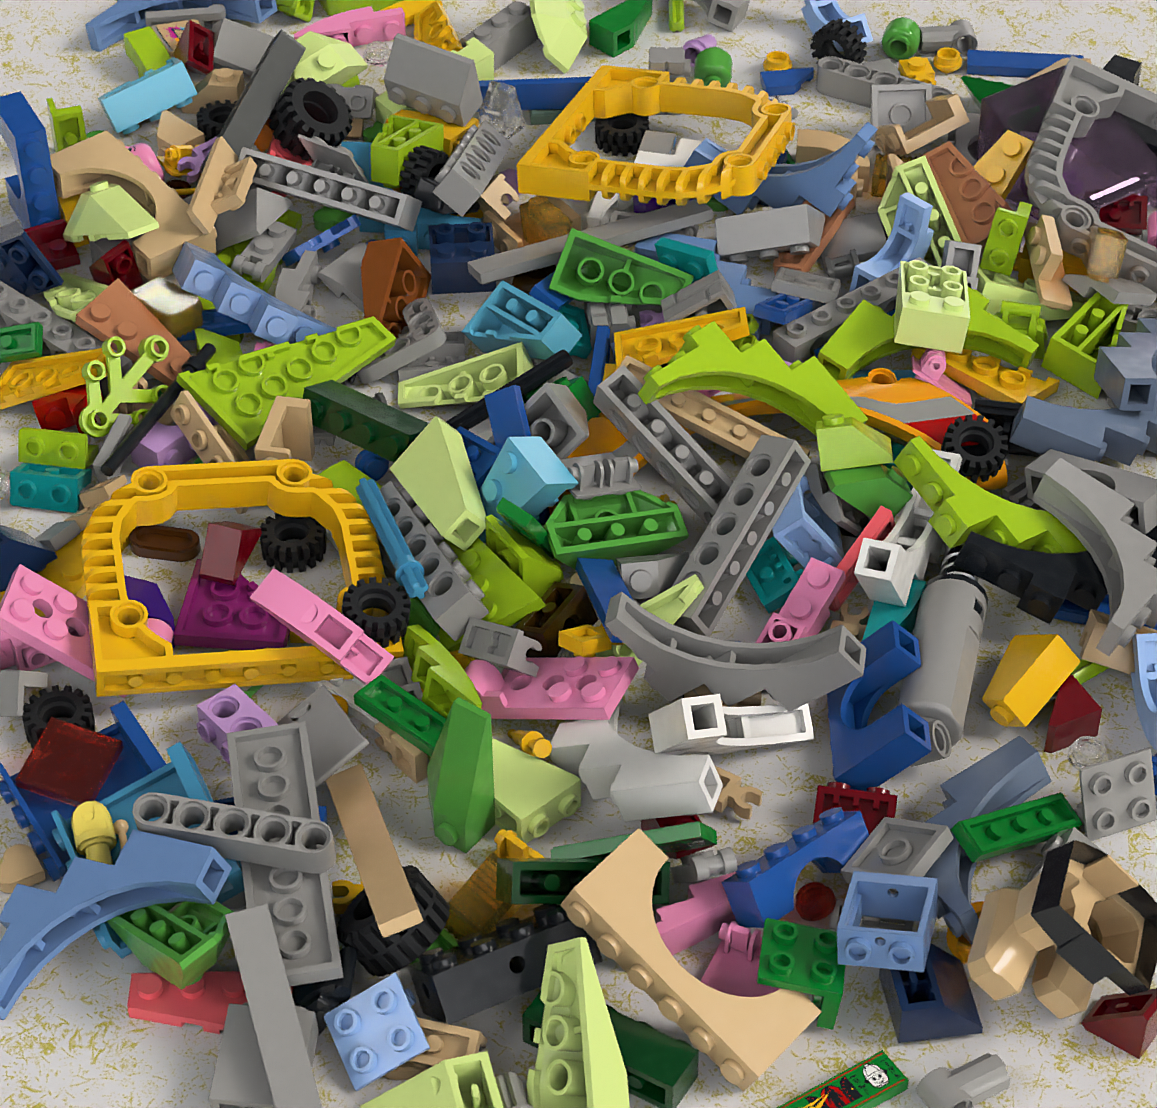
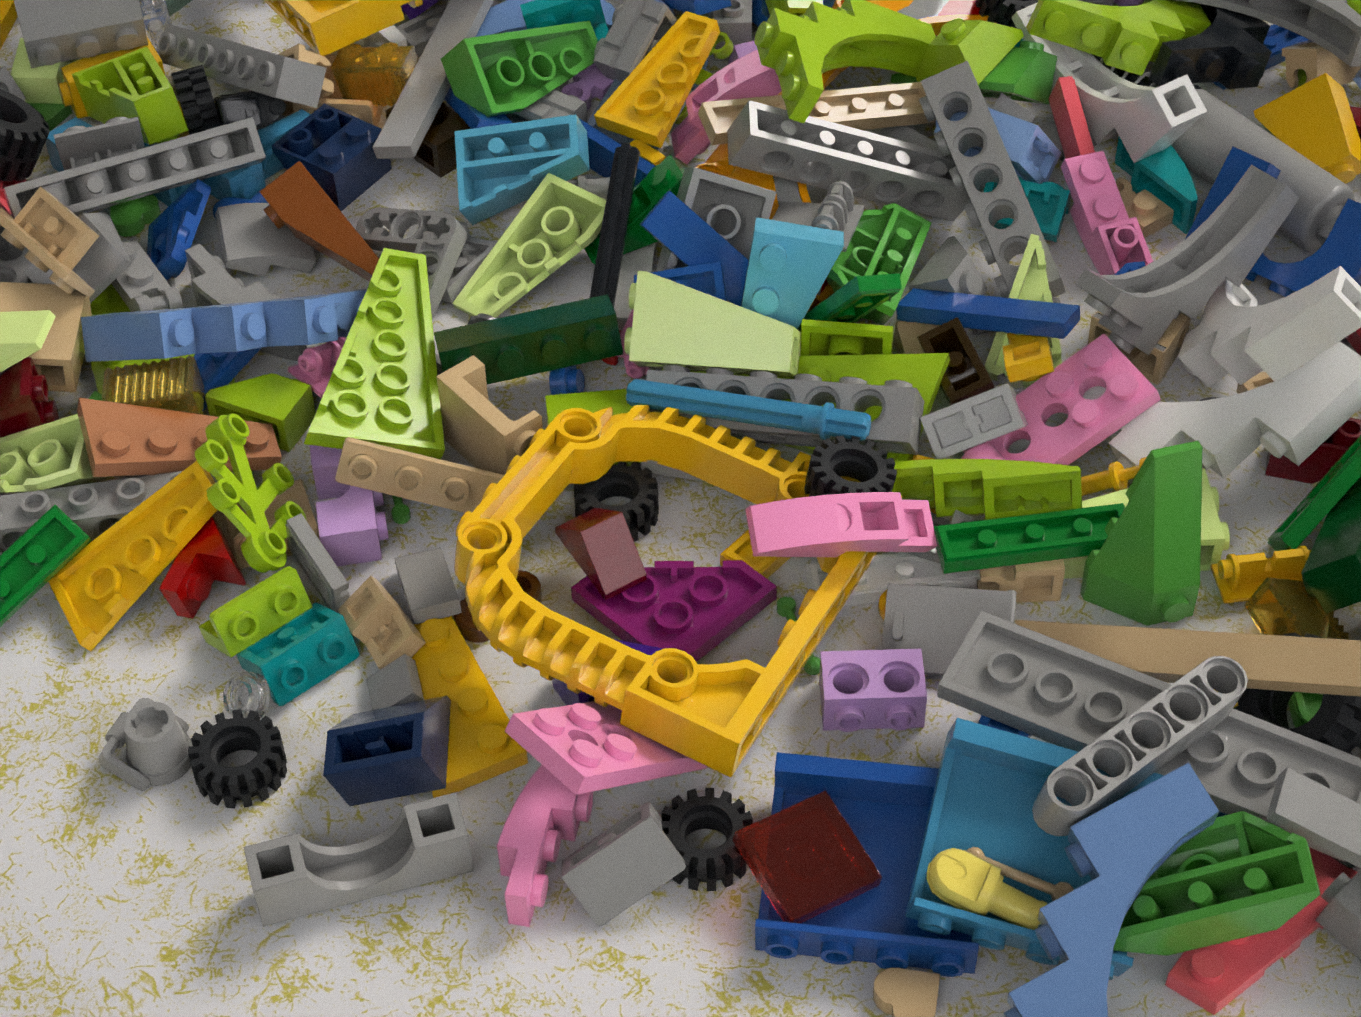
camera: 50 degrees left, 5 degrees up
(193, 364) = (280, 430): black bar -> none

